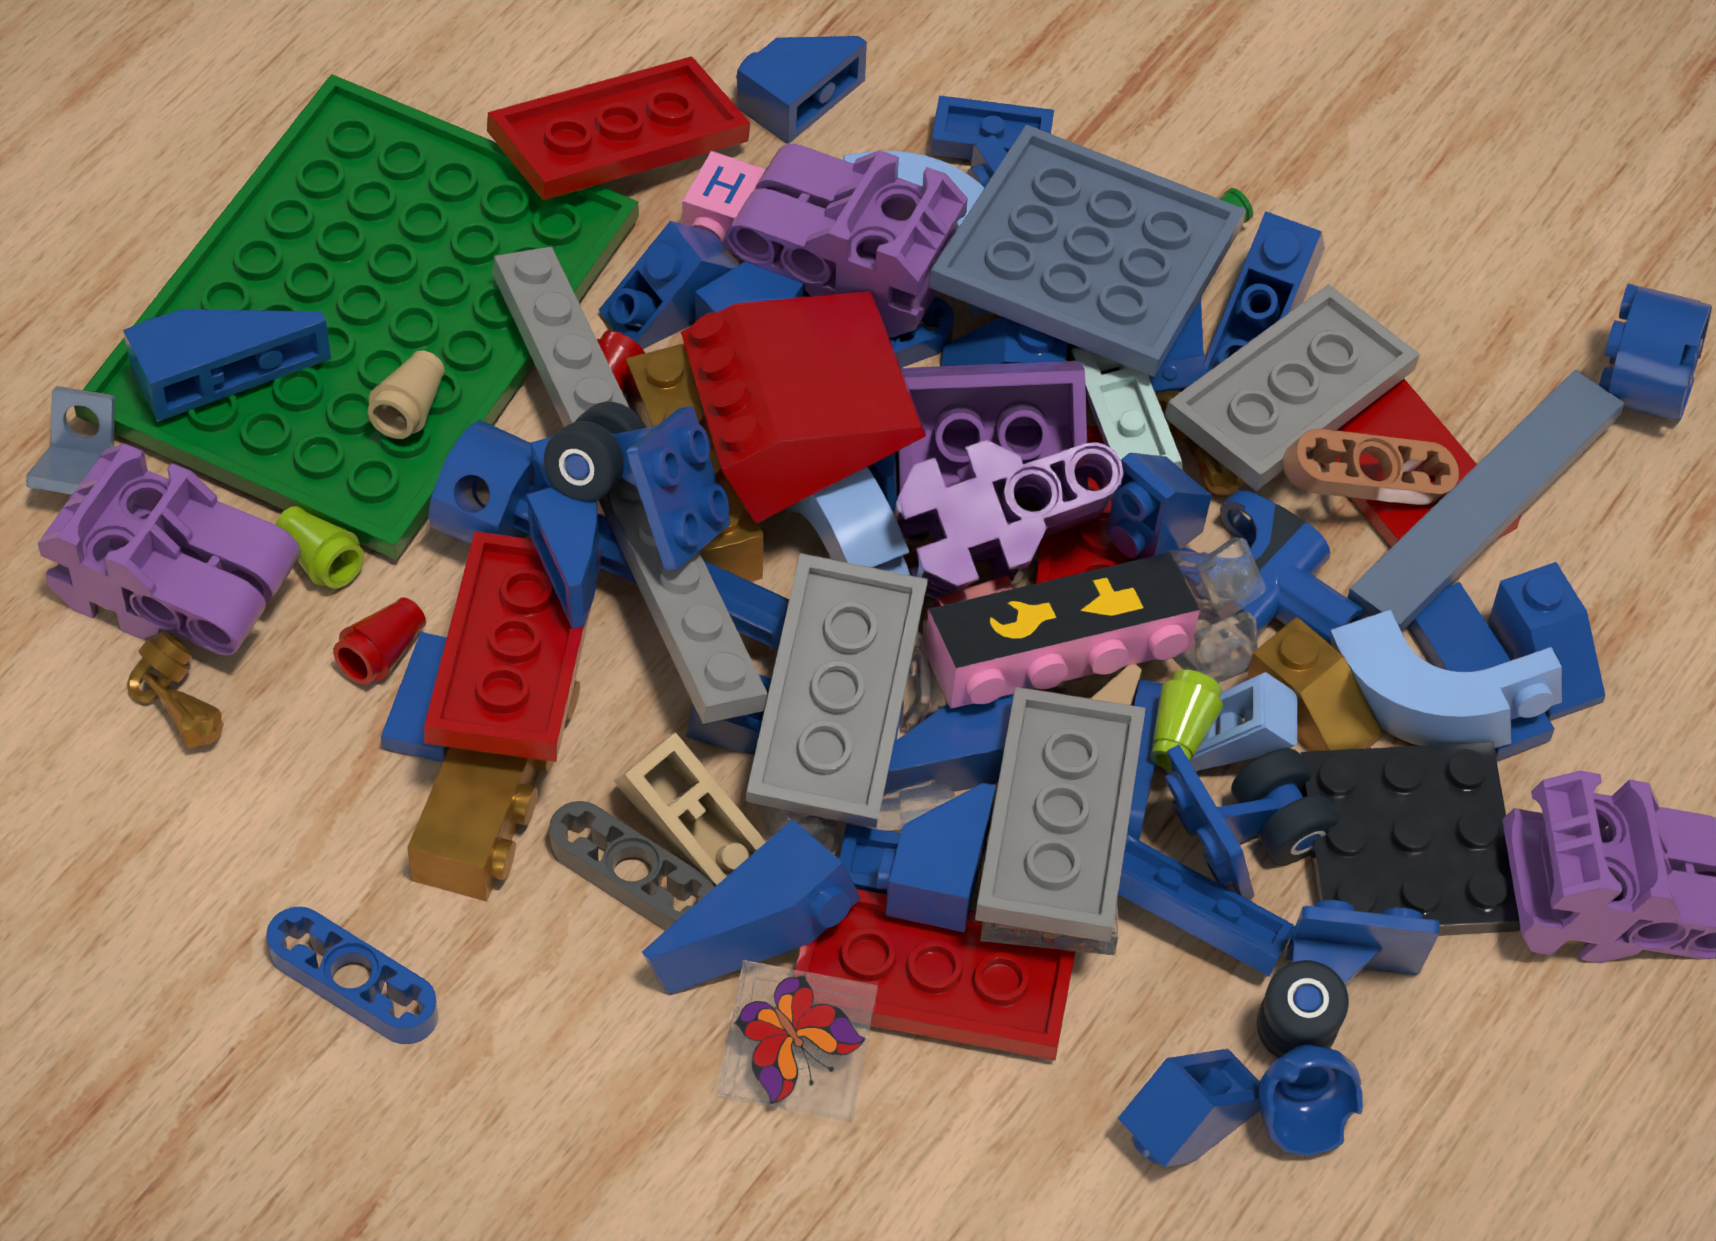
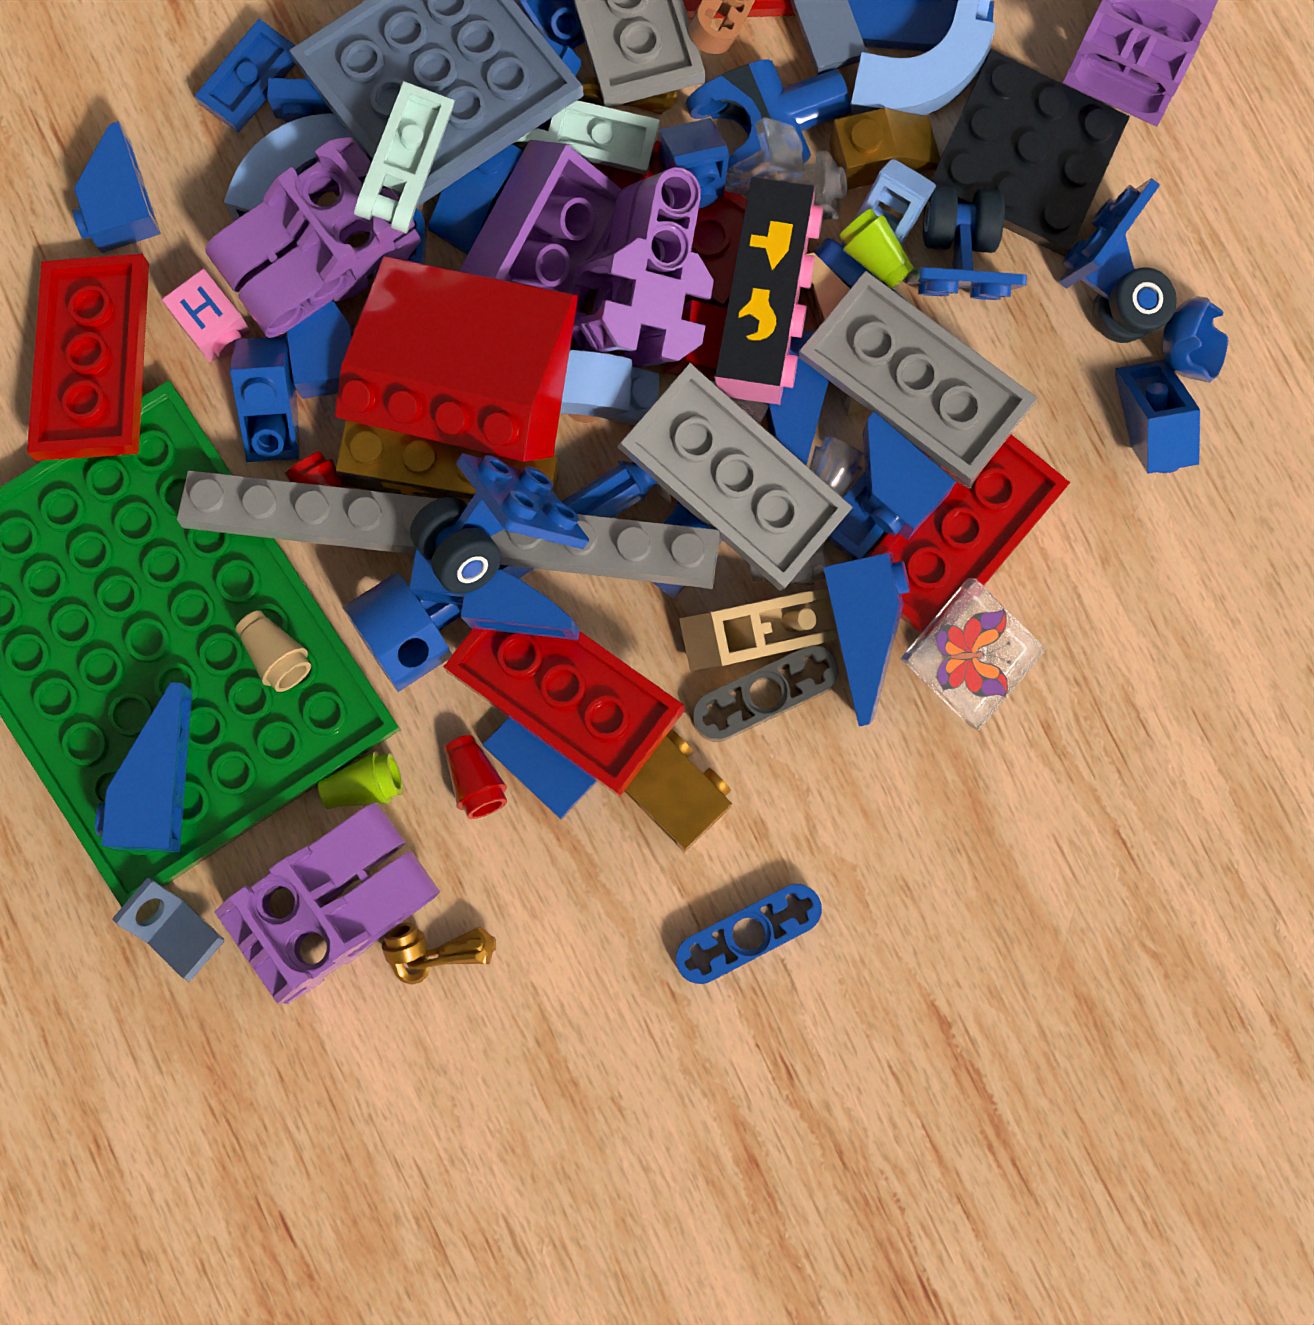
camera: 60 degrees left, 25 degrees up
(969, 234) = (405, 155): none -> light aqua plate
(1202, 907) = (1021, 318): blue tile -> none

